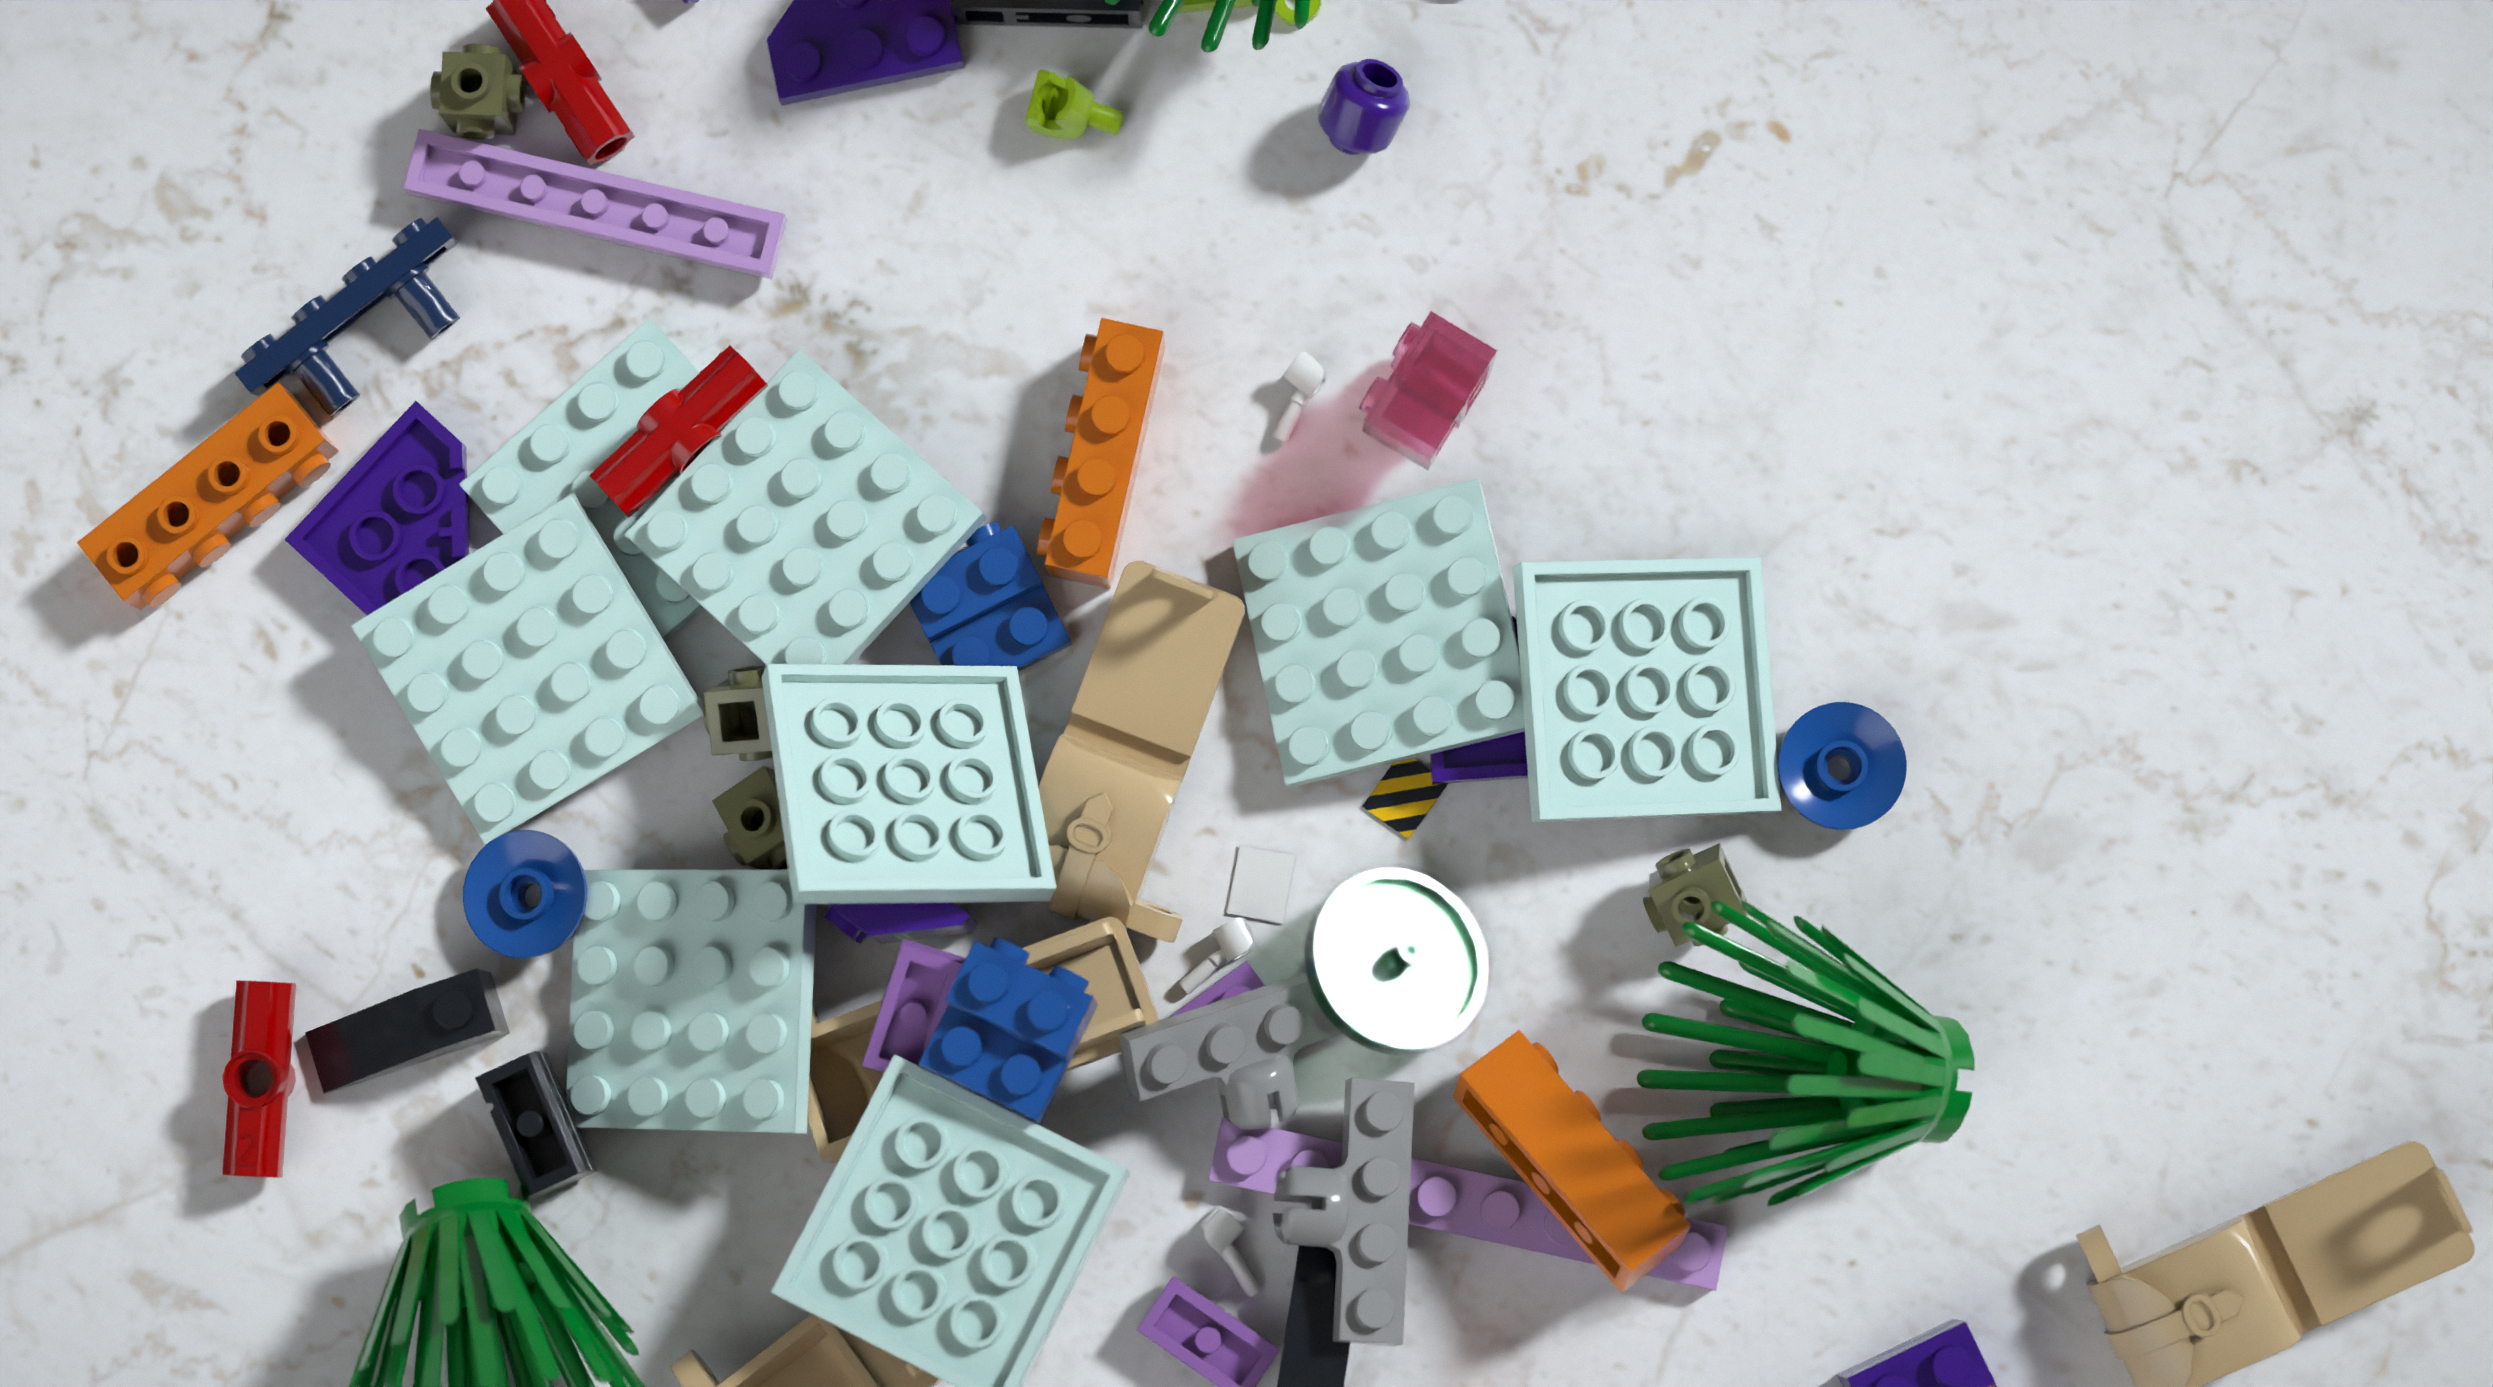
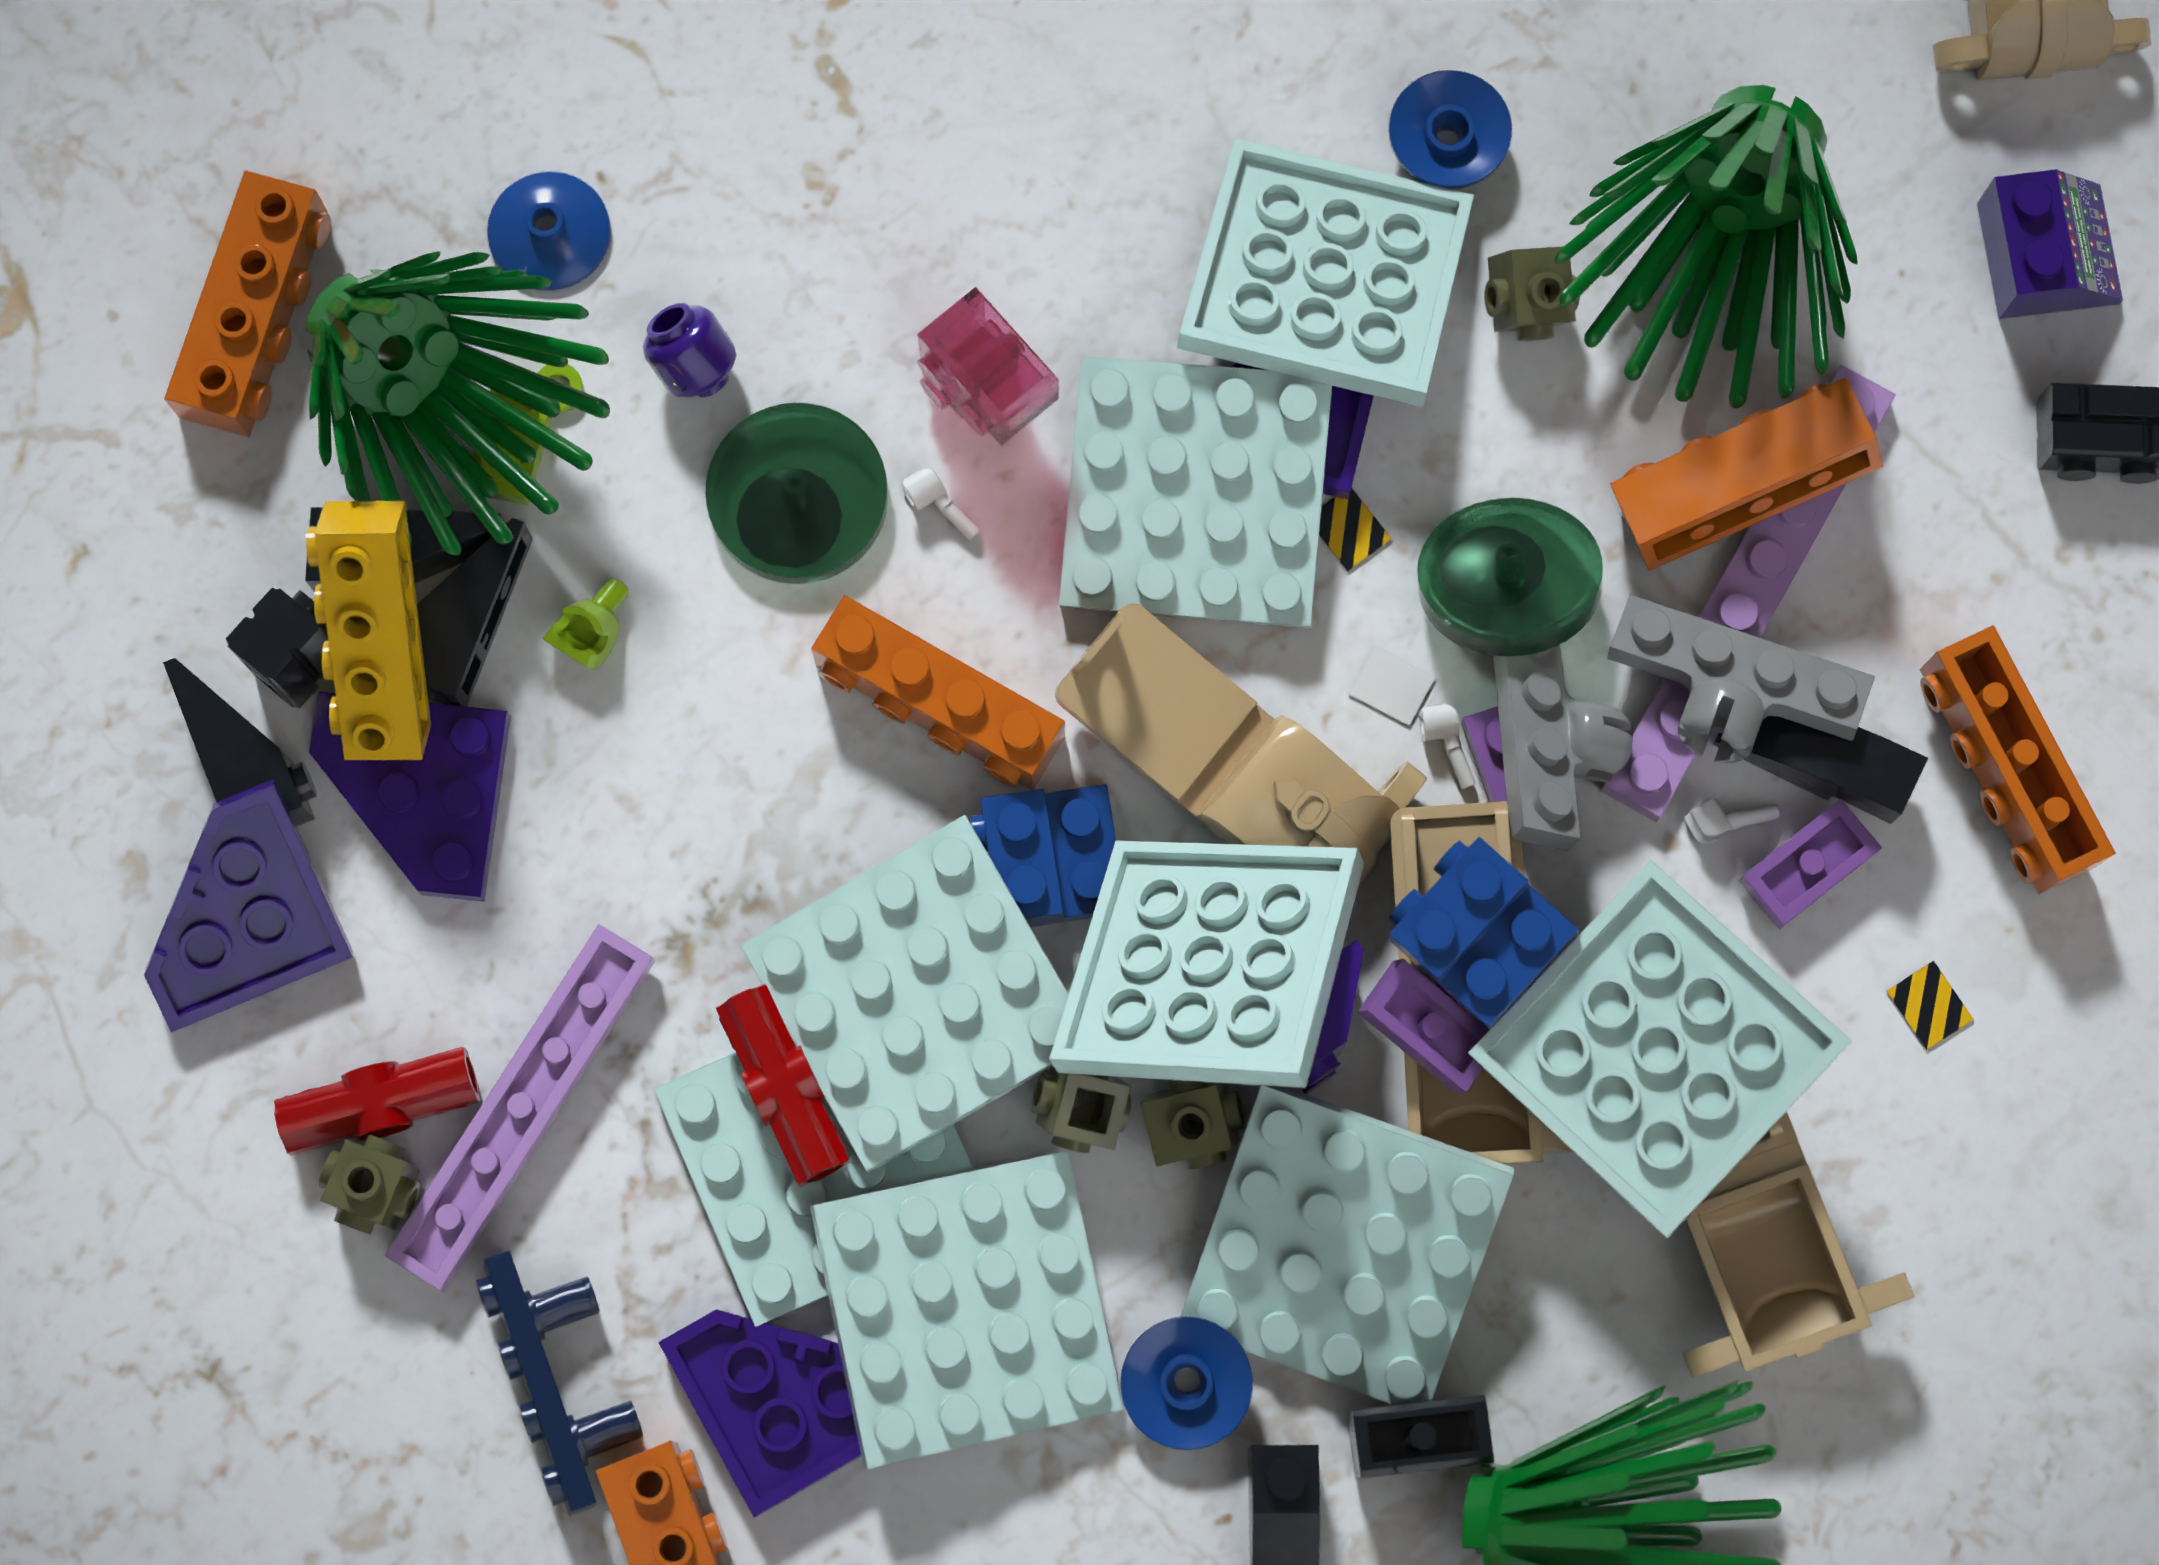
camera: 75 degrees left, 5 degrees down
(1264, 257) = (797, 493): none -> clear green piece

